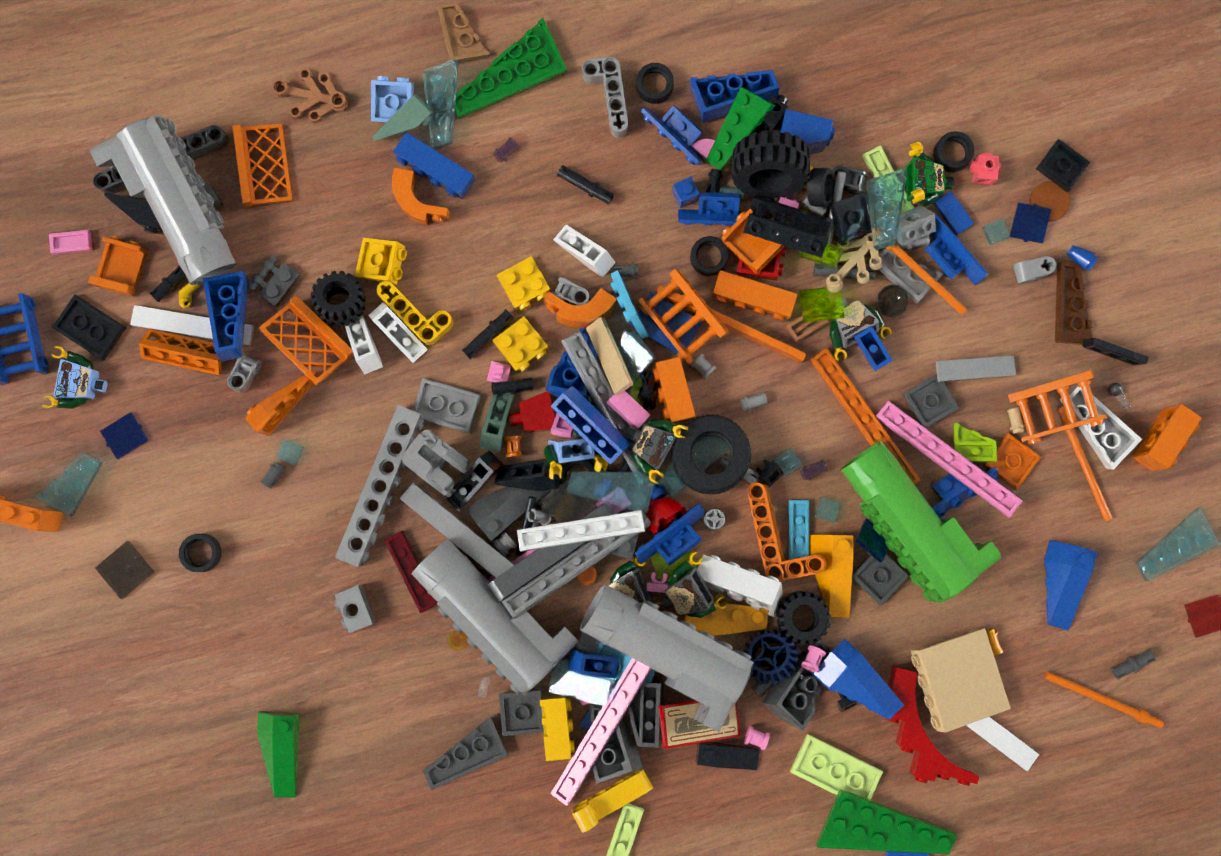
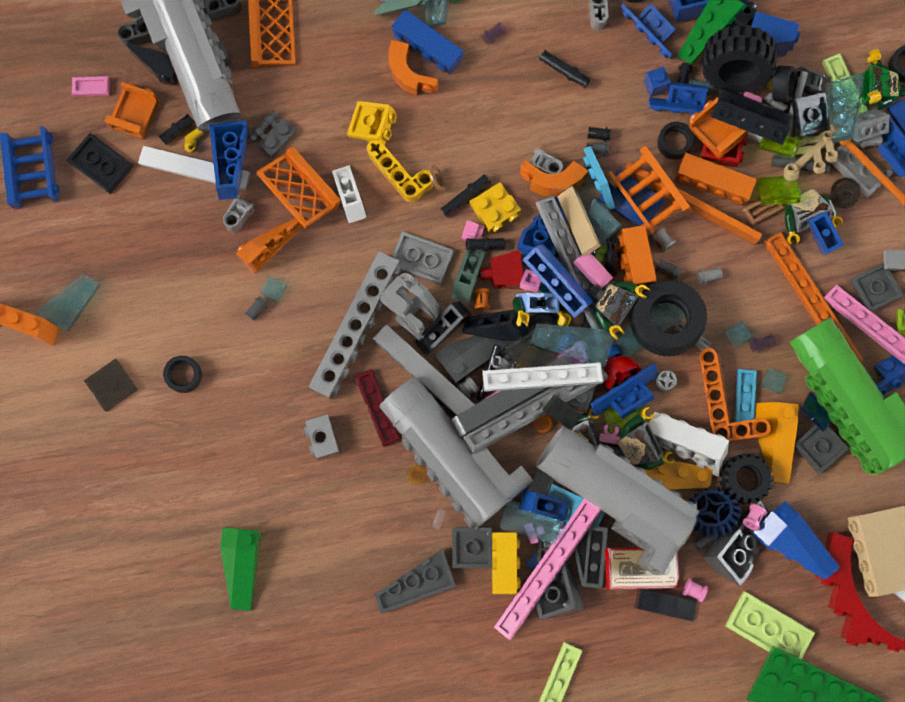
camera: 10 degrees right, 5 degrees down
(75, 381) = (83, 209): torso -> none
(124, 435) = (122, 263): clear blue piece -> none
(180, 354) = (182, 193): orange fence -> none
(332, 285) = (331, 140): black tyre -> none
(397, 332) = (382, 187): white slope -> none
(450, 319) = (432, 174): none -> medium nougat piece
(524, 284) = (502, 153): yellow plate -> none
(585, 250) = (561, 127): white slope -> none
(604, 565) = (562, 412): none -> pearl dark grey tile
(610, 799) = (552, 636): yellow beam -> none
(627, 254) = (601, 133): none -> black pin
(703, 147) = (675, 43): bright pink tile -> none
(710, 398) = (669, 269): none -> dark grey pin
(770, 473) = (721, 342): black tile -> none
(845, 704) = (781, 563): black tile -> none

